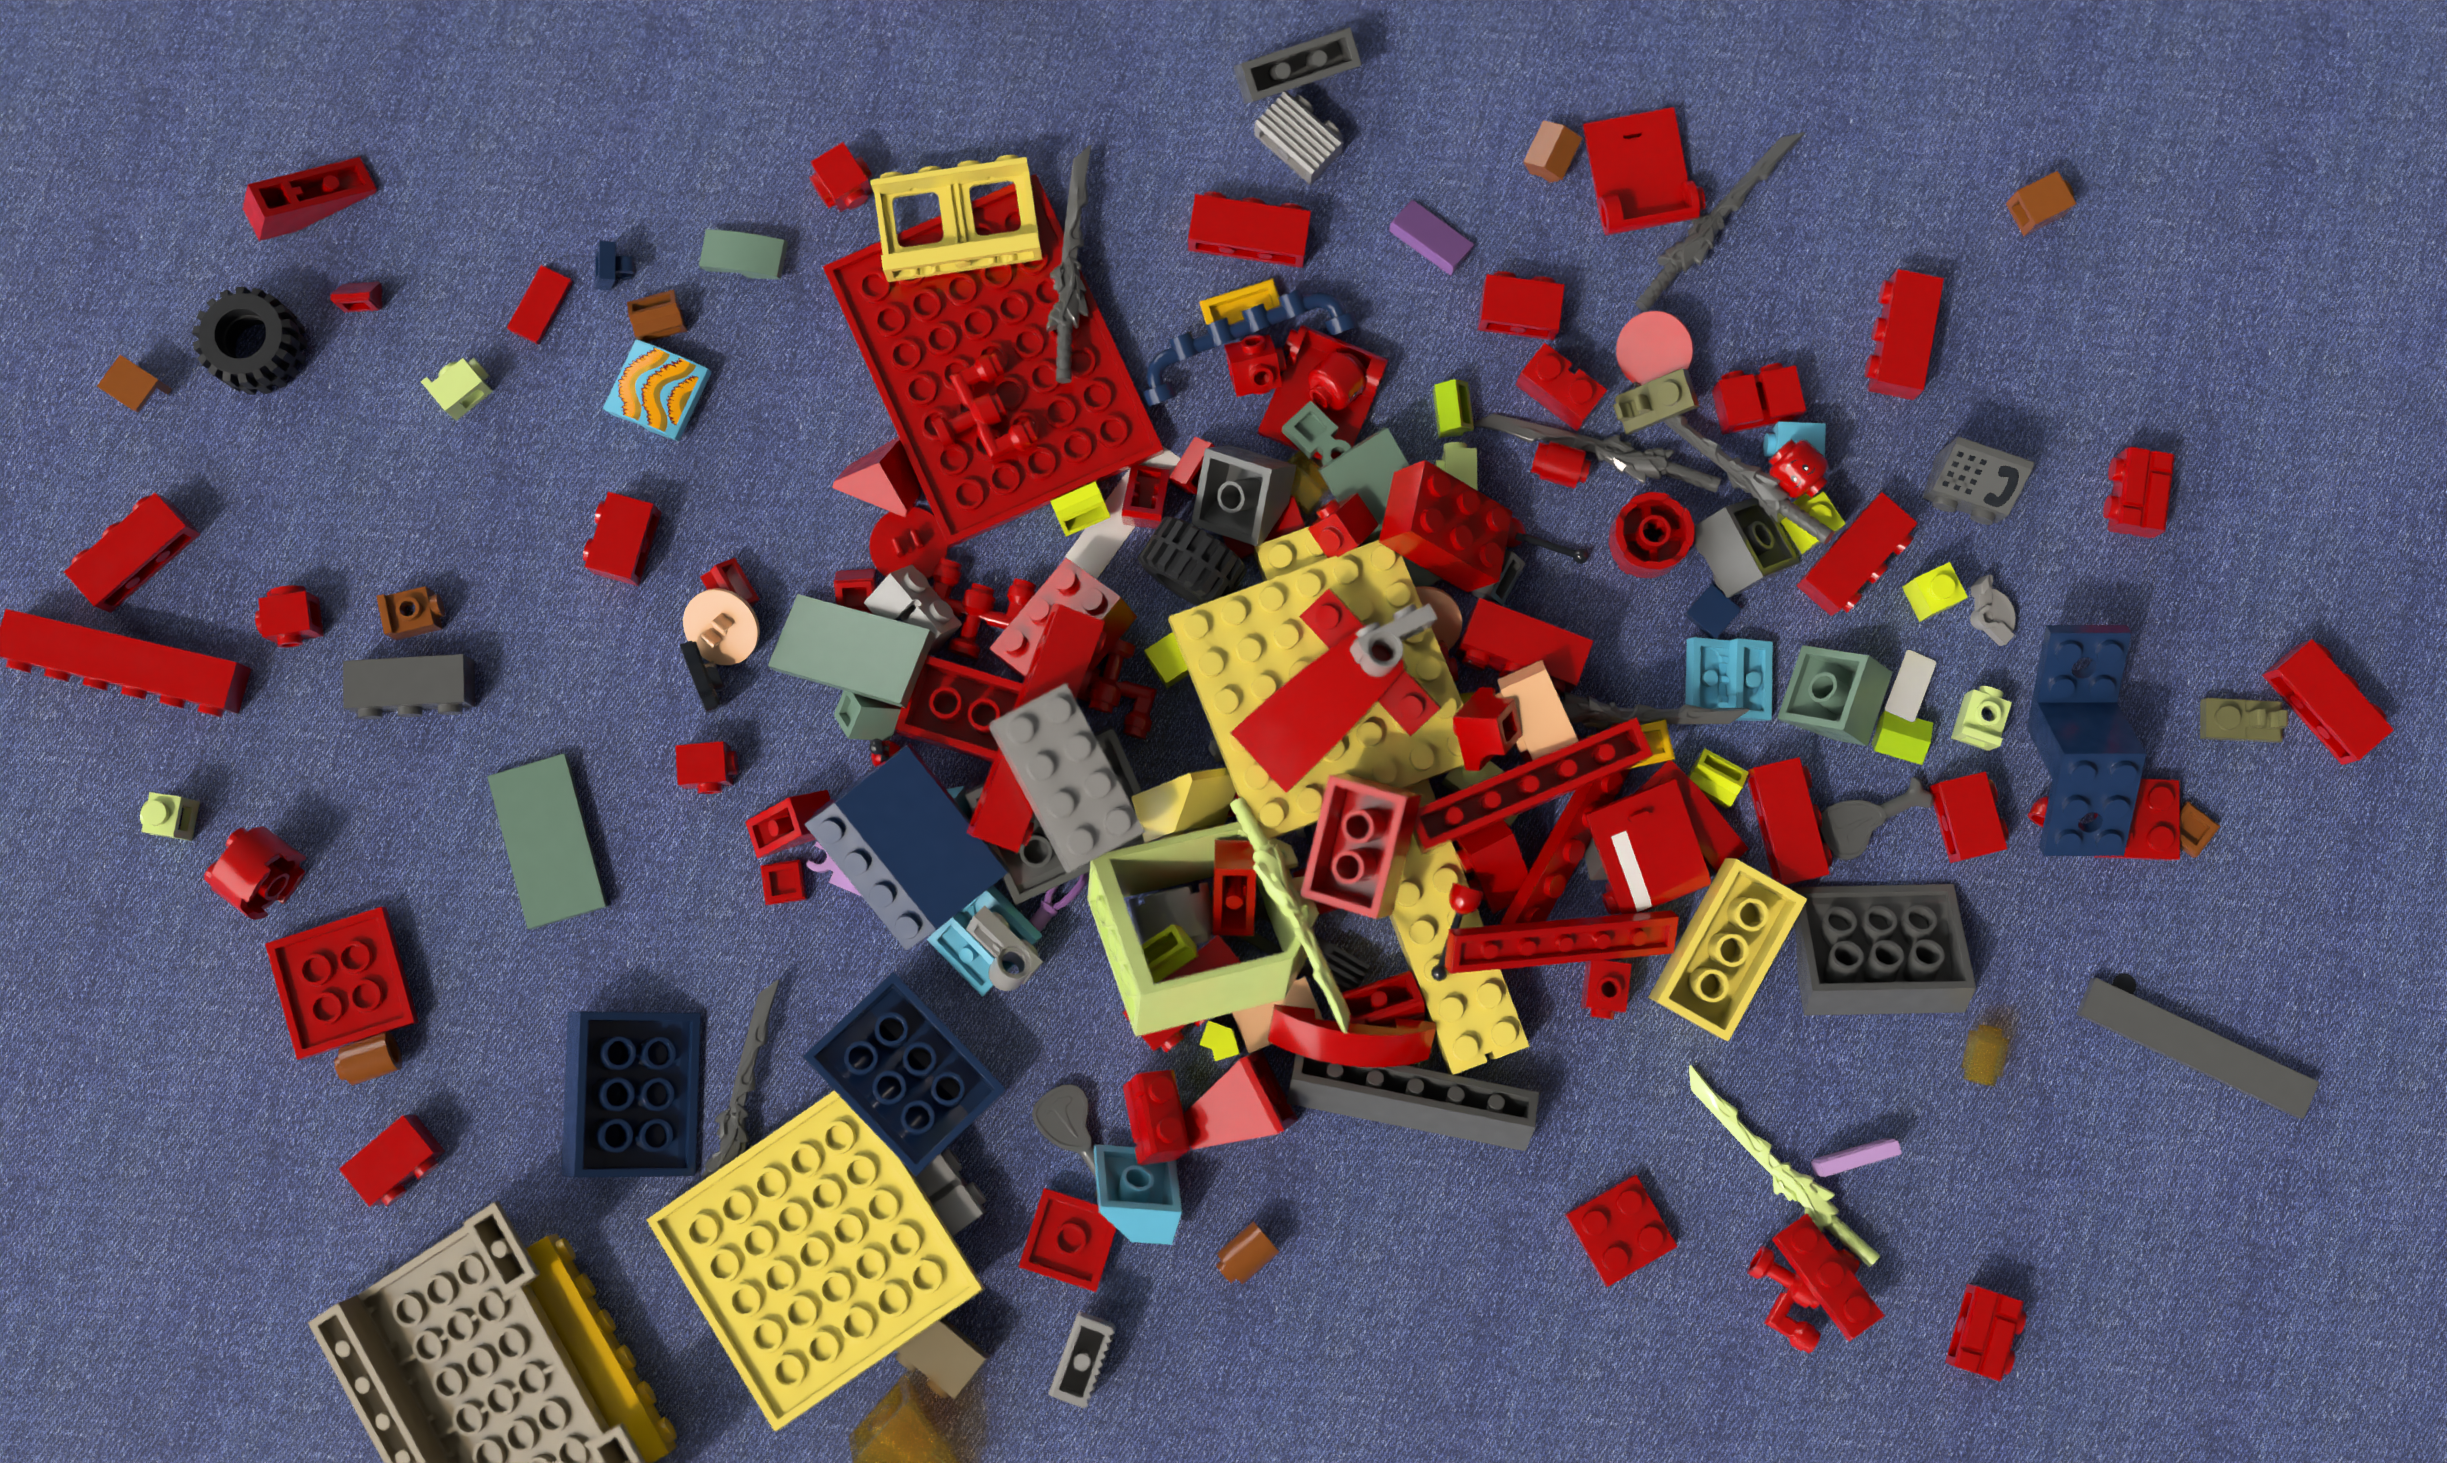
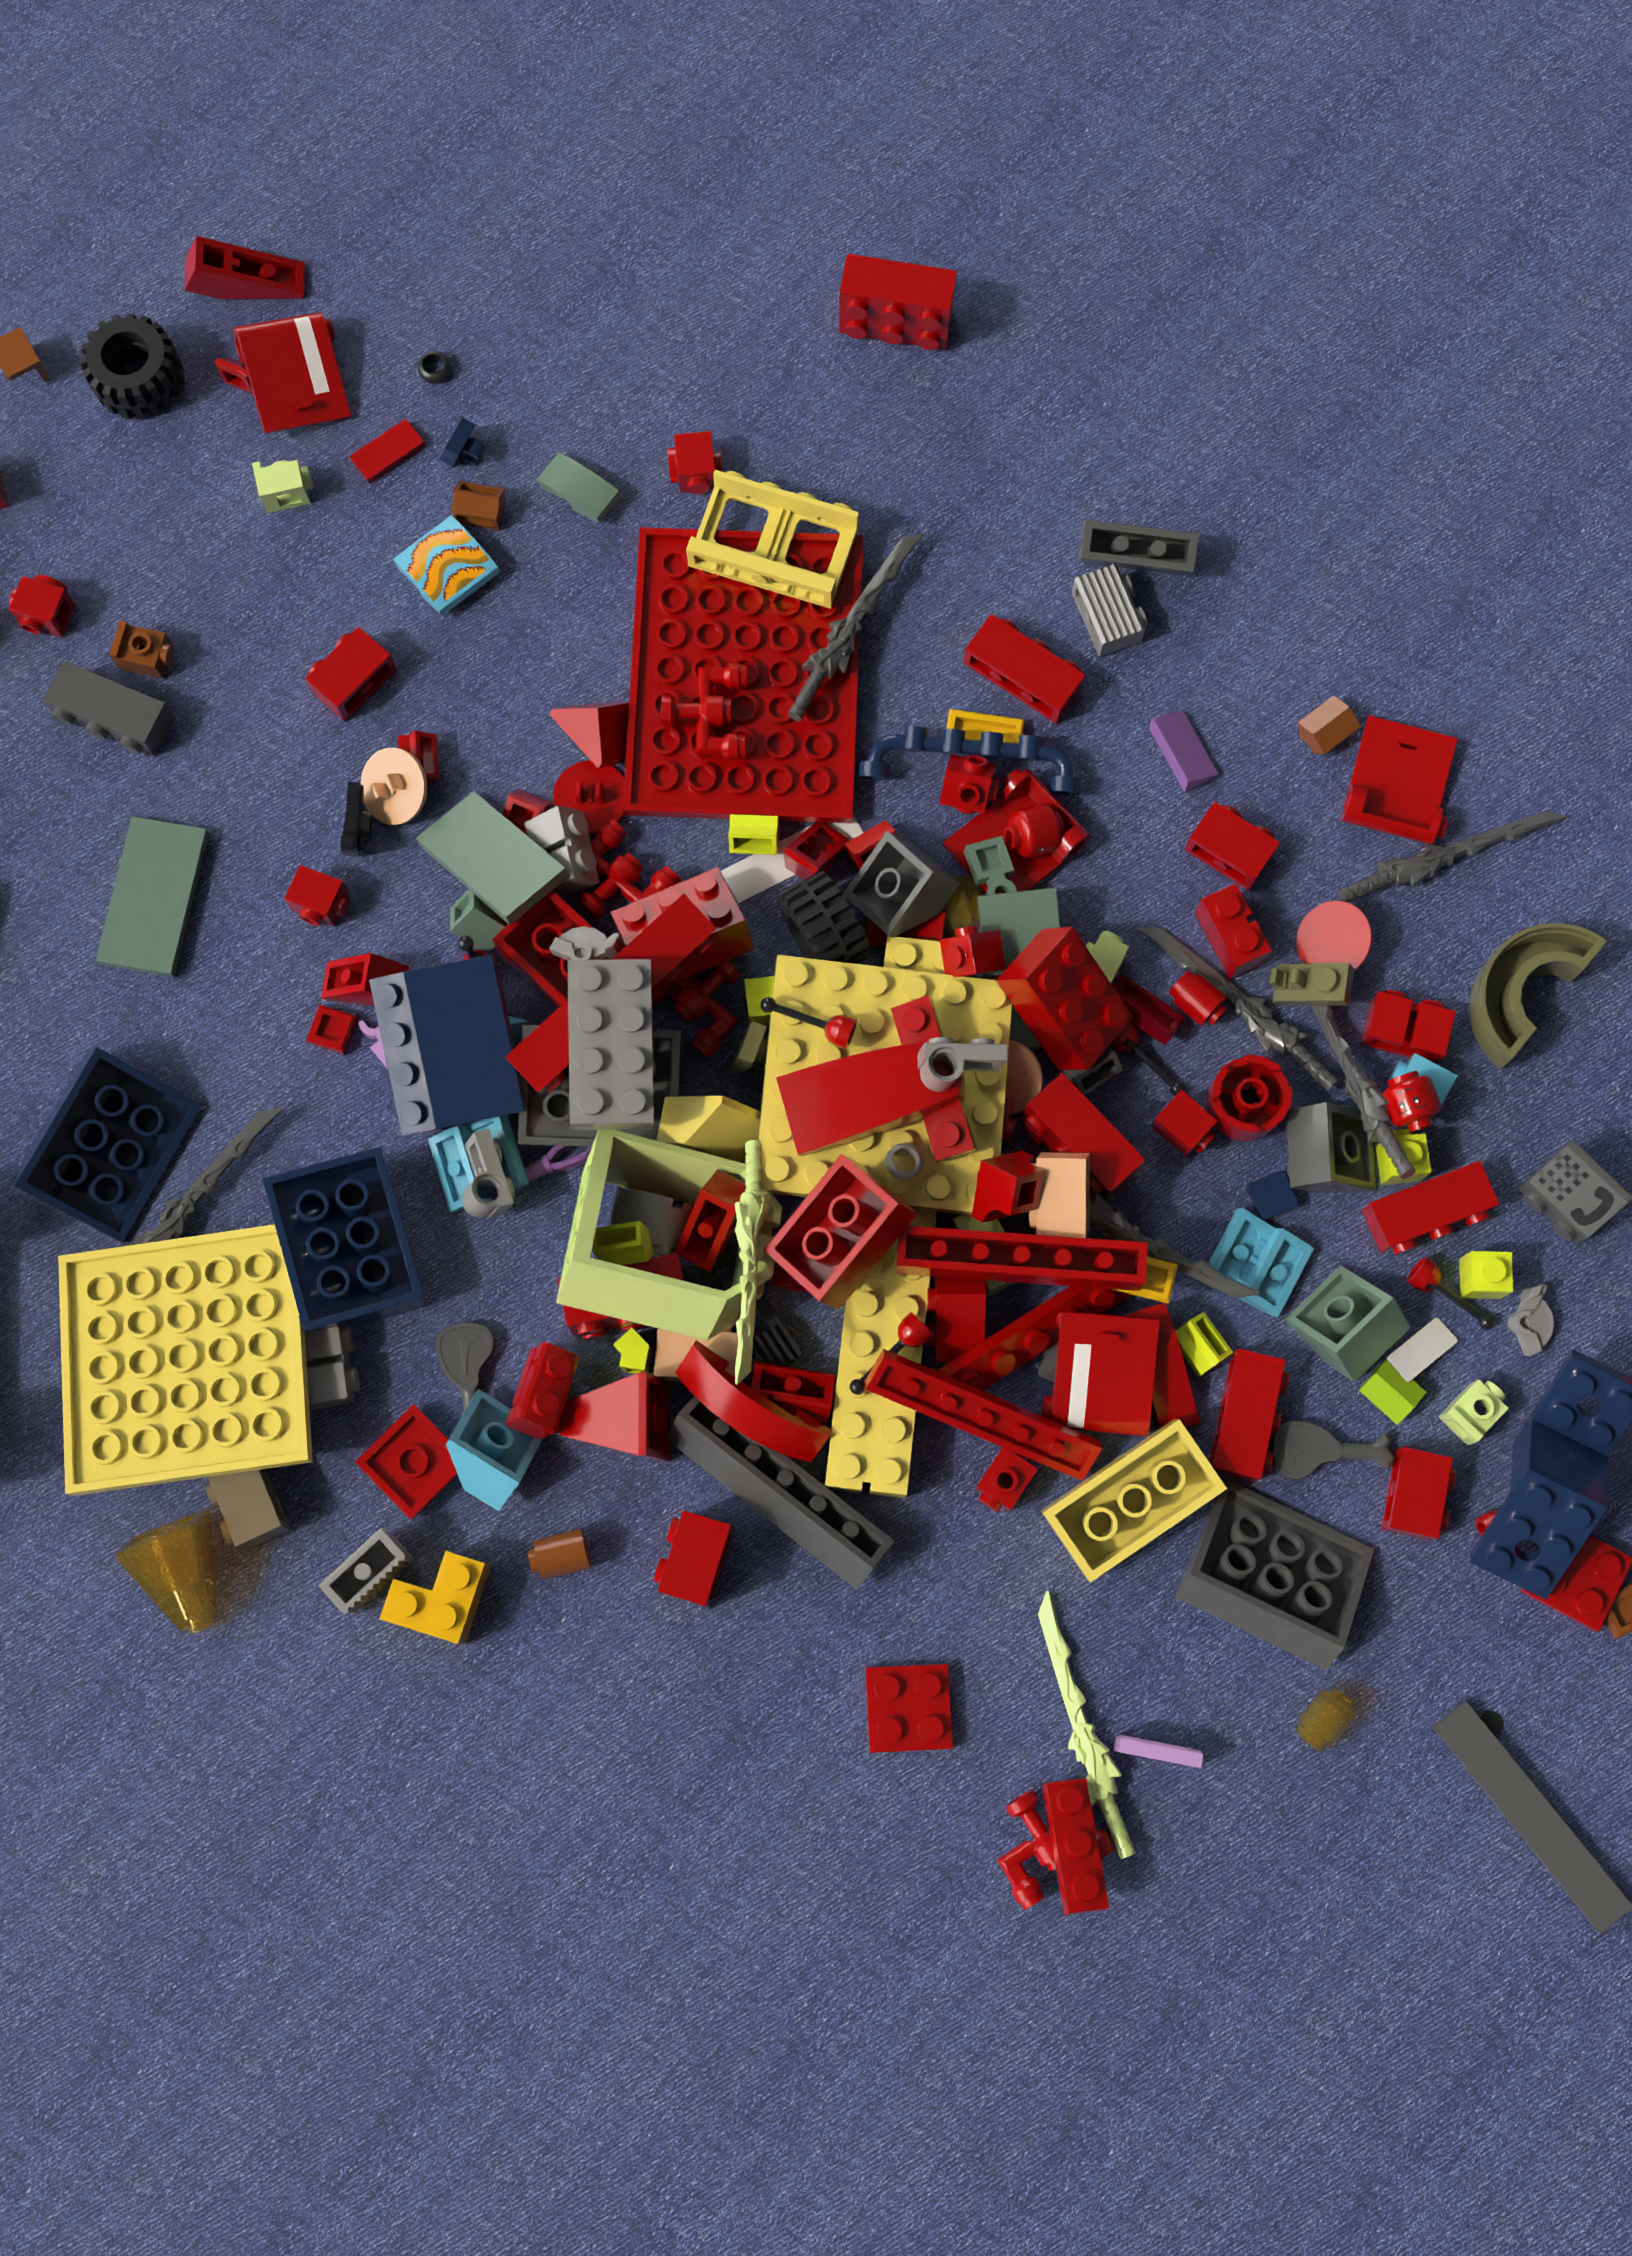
camera: 30 degrees right, 5 degrees down
(405, 268) = (292, 366): none -> red door
(535, 190) = (435, 377): none -> pearl dark grey piece
(986, 693) = (586, 944): none -> light grey piece
(1167, 1359) = (445, 1610): none -> yellow brick
(1183, 712) = (751, 1050): none -> olive plate
(1261, 659) = (838, 1029): none -> hinge
(1371, 1199) = (694, 1558): none -> red brick
(1384, 737) = (895, 1172): none -> light grey piece
(1452, 408) = (1127, 904): lime piece -> none
(1523, 498) = (1148, 1011): none -> dark red tile
(1606, 587) = (1185, 1125): none -> red brick
(1820, 310) = (1497, 989): none -> olive brick
(1883, 618) = (1427, 1277): none -> hinge
(1904, 334) = (1570, 1033): red brick -> none
(1986, 1333) = (1199, 1977): red brick -> none

